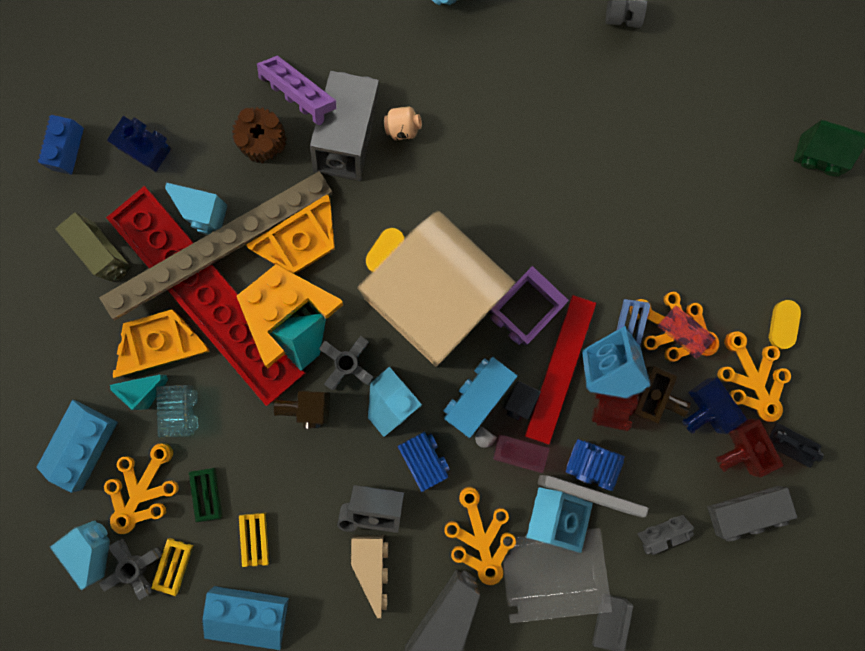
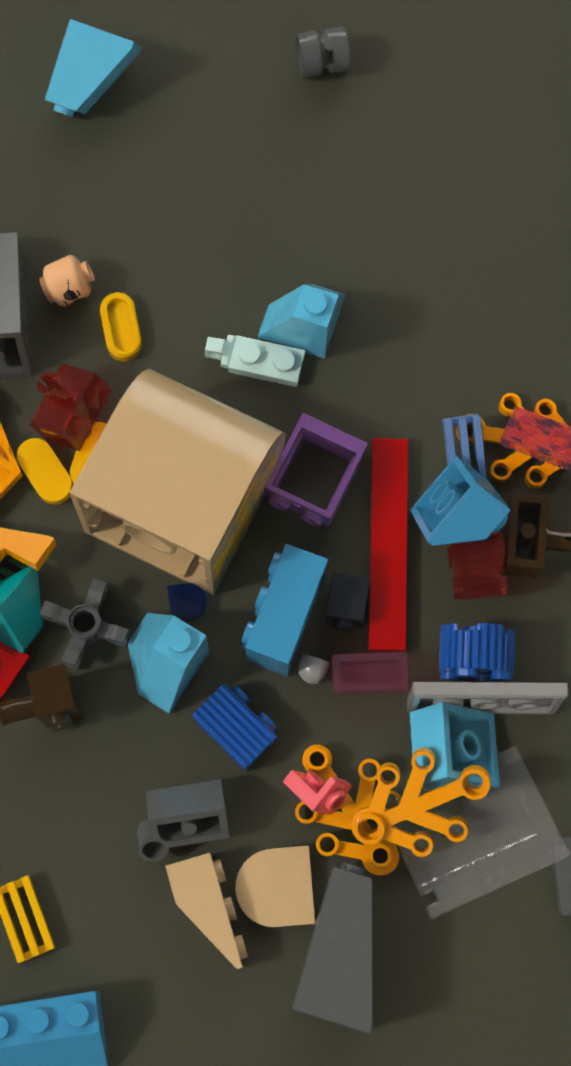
camera: 15 degrees left, 10 degrees down
(350, 250) = (44, 471): none -> yellow tile
(379, 212) = (69, 405): none -> clear red brick
(416, 367) = (186, 601): none -> clear blue tile
(419, 570) = (277, 887): none -> tan tile
(429, 165) = (121, 327): none -> yellow tile
(459, 520) = (316, 793): none -> coral bracket
(513, 216) = (257, 358): none -> light aqua hinge
(523, 553) = (415, 807): none -> light orange plant
(553, 198) = (303, 319): none -> medium azure slope

